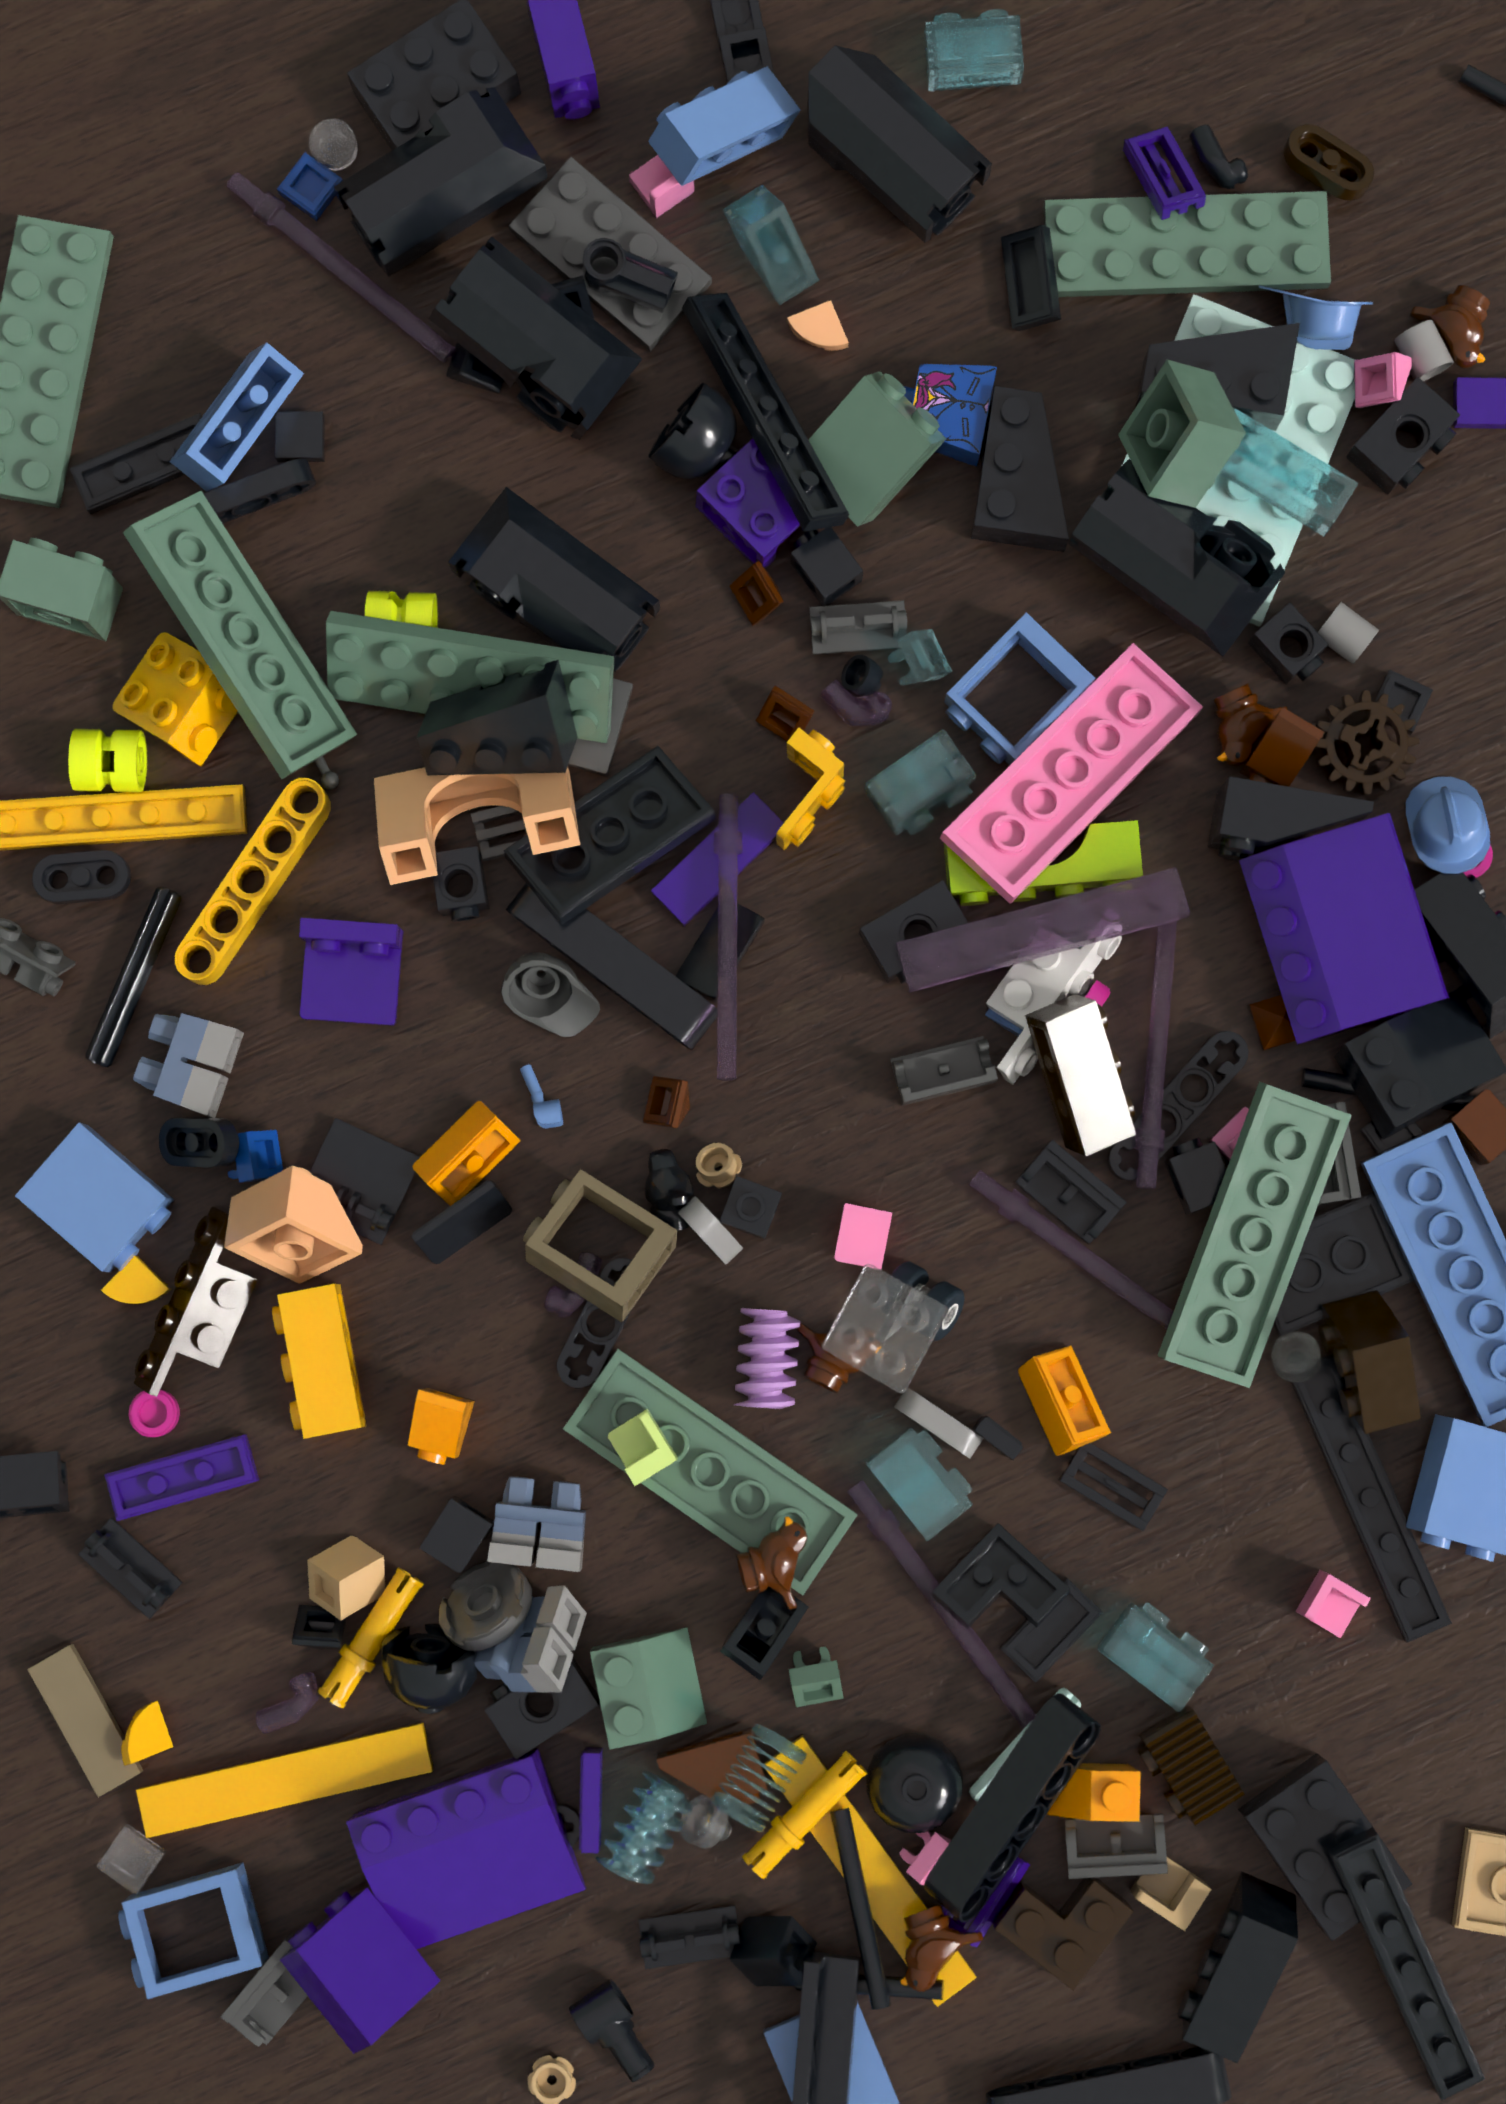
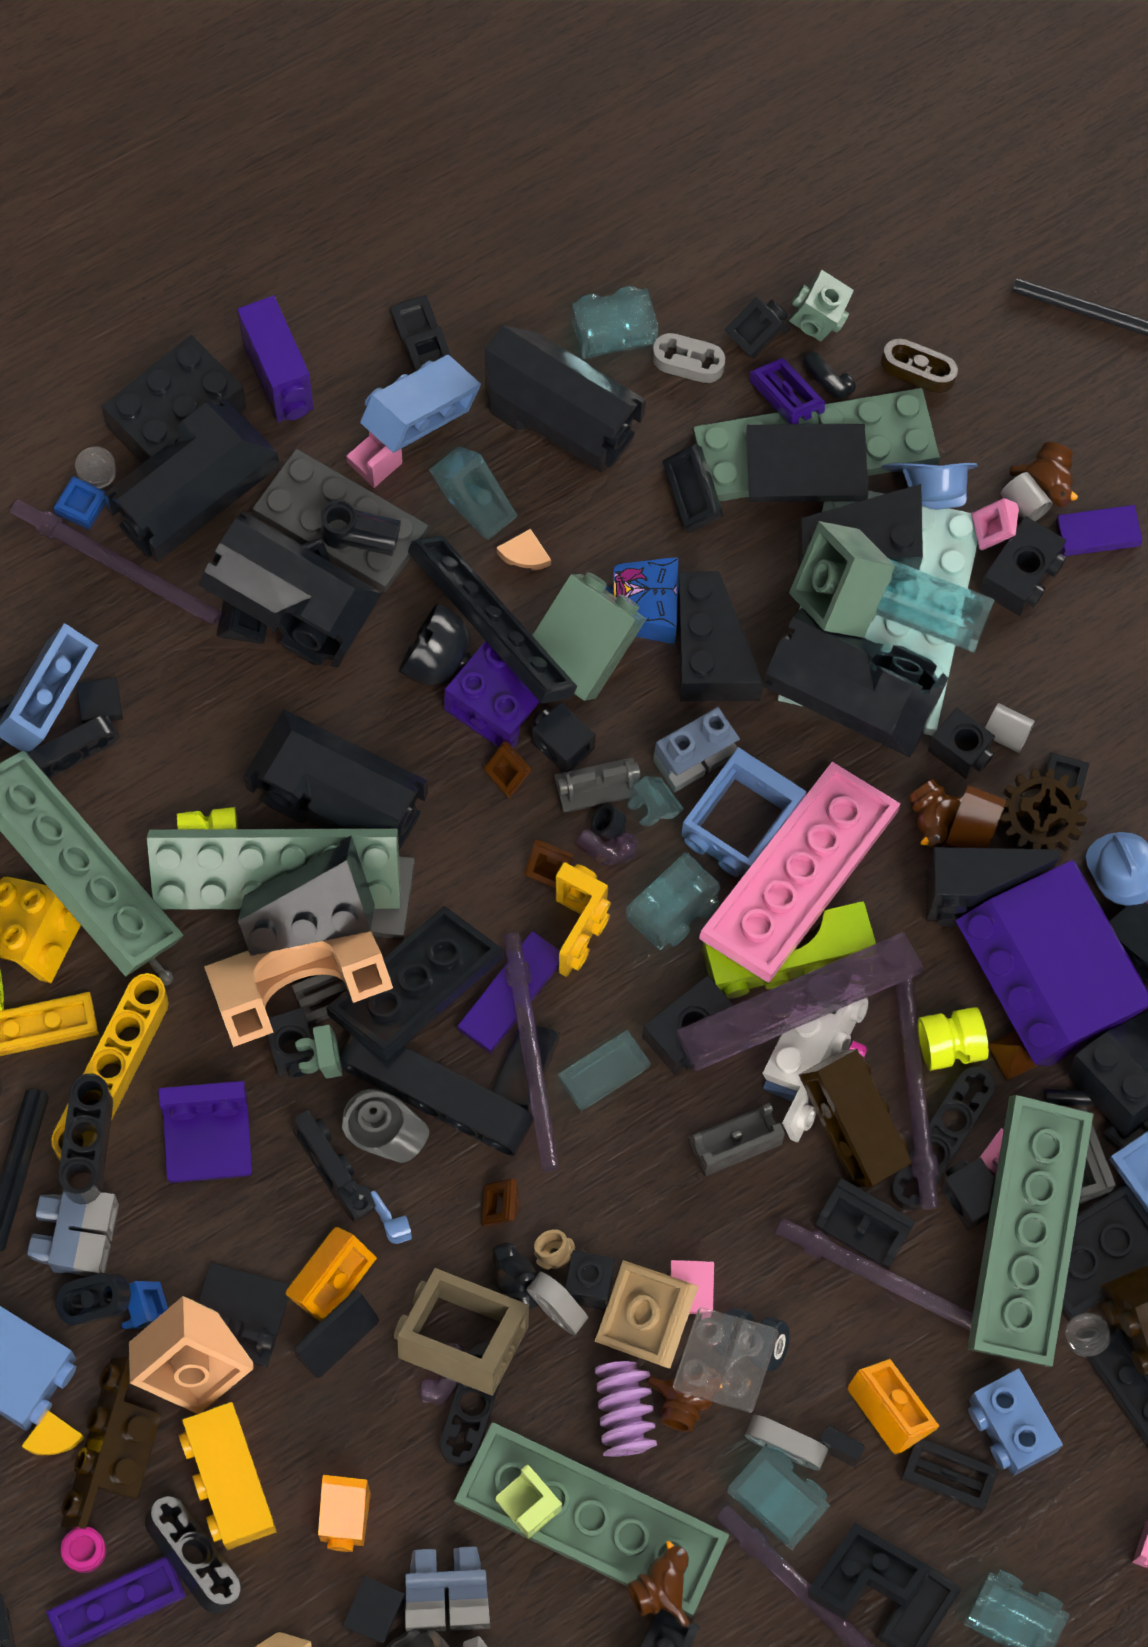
camera: 15 degrees left, 15 degrees down
(206, 940) = (78, 1120): none -> black beam
(296, 1466) = (195, 1536): none -> black beam
(488, 1035) = (333, 1168): none -> black hinge
(495, 904) = (325, 1050): none -> sand green tile
(807, 1258) = (646, 1314): none -> tan tile
(808, 967) = (604, 1070): none -> clear light blue tile
(985, 597) = (695, 749): none -> sand blue hips
(1060, 100) = (688, 358): none -> light grey beam
(1145, 81) = (758, 325): none -> black bracket
(1170, 269) = (806, 462): none -> black tile
(1194, 1443) = (1014, 1423): none -> medium blue brick
(1210, 995) = (953, 1038): none -> neon yellow wheel
(1224, 69) = (821, 306): none -> sand green brick

